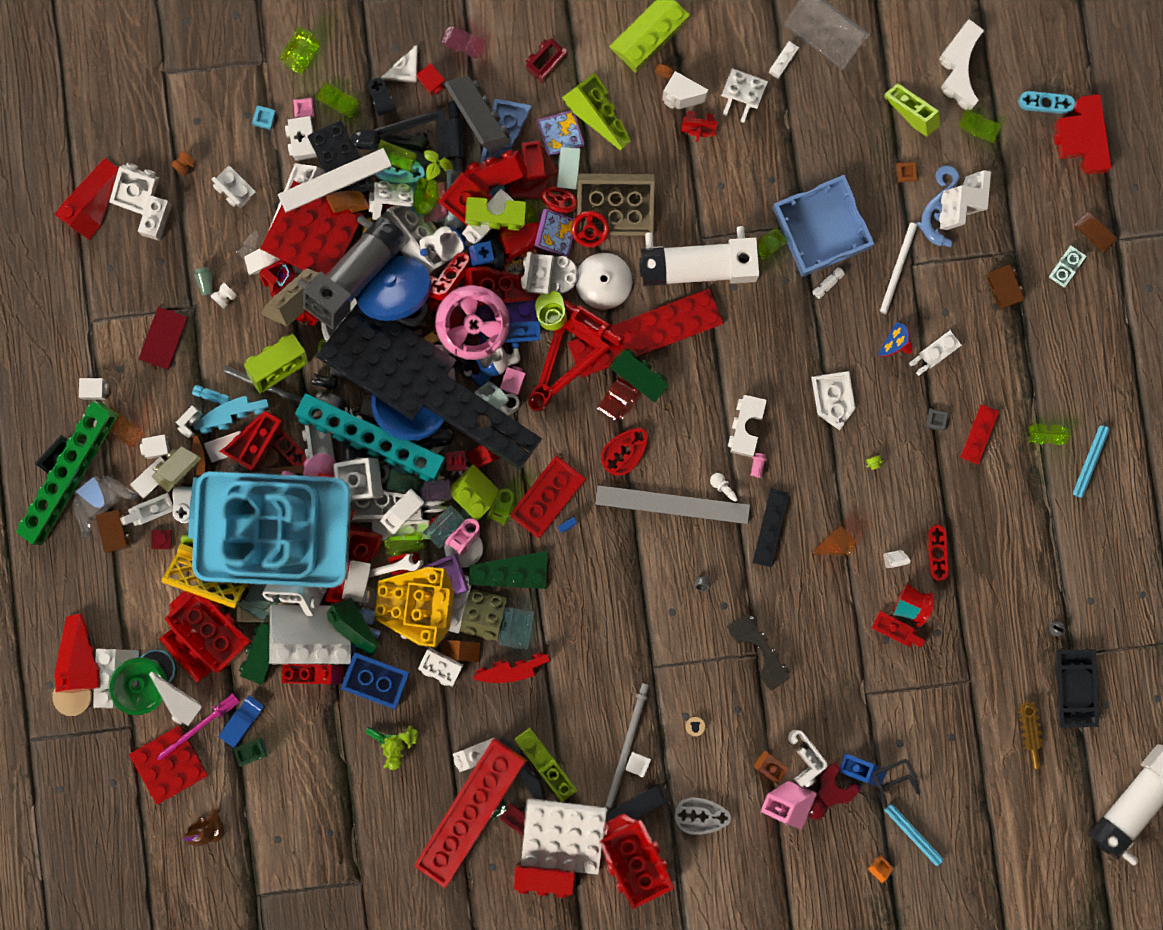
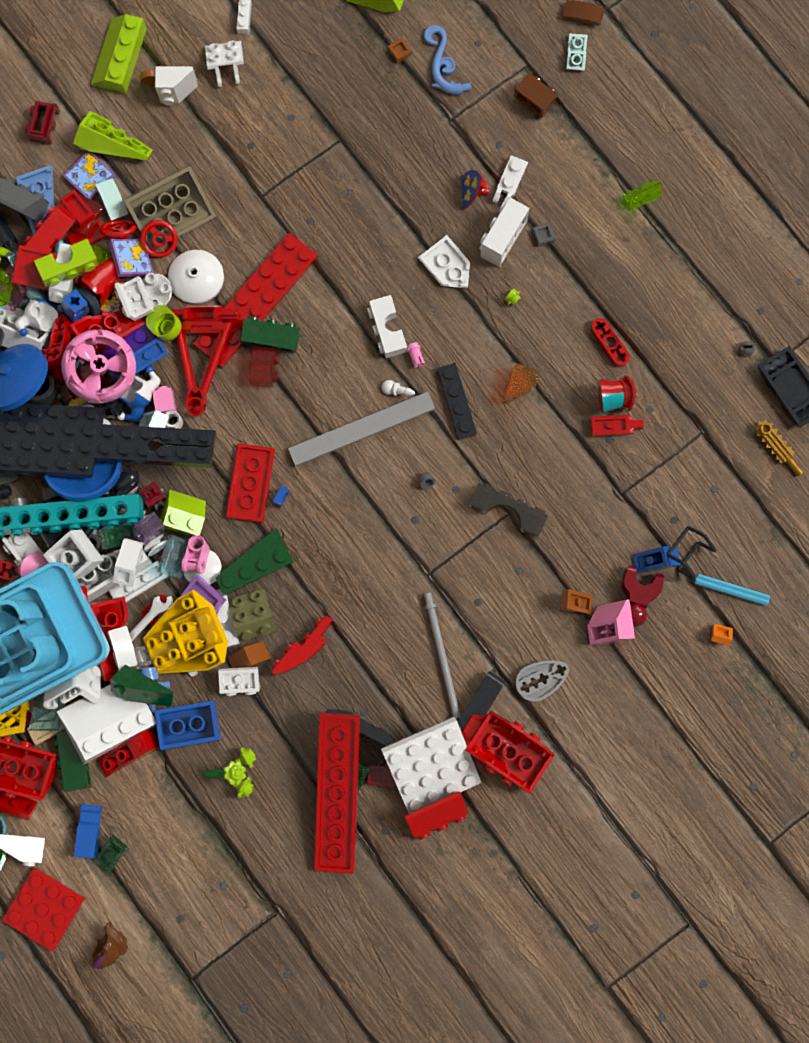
camera: 30 degrees left, 5 degrees down
(220, 710) = (63, 832): dark pink piece -> none
(411, 543) = (153, 587): clear neon green hinge -> none
(470, 757) = (308, 744): white bracket -> none
(481, 456) = (174, 478): red bracket -> none
(500, 508) = (215, 514): clear neon green piece -> none
(516, 628) = (287, 609): clear light blue bracket -> none
(545, 764) = (380, 712): lime slope -> none
(614, 446) = (284, 407): red piece -> none
(637, 764) = (460, 666): white panel -> none
(695, 726) = (491, 605): tan tile -> none
(699, 127) = (204, 105): red hips -> none
(700, 263) = (294, 198): white piece -> none
(770, 243) = (318, 168): clear neon green bracket -> none
(812, 758) = (604, 572): white piece -> none
(823, 226) = (355, 129): medium blue tile -> none
(828, 283) = (387, 173): white axle -> none
(896, 559) = (579, 366): white slope -> none
(898, 268) = (438, 130): white piece -> none
(900, 399) = (503, 231): none -> white brick
(965, 200) = (461, 41): white bracket -> none
(979, 434) = (586, 226): red plate -> none
(1091, 461) = (691, 196): medium azure axle -> none

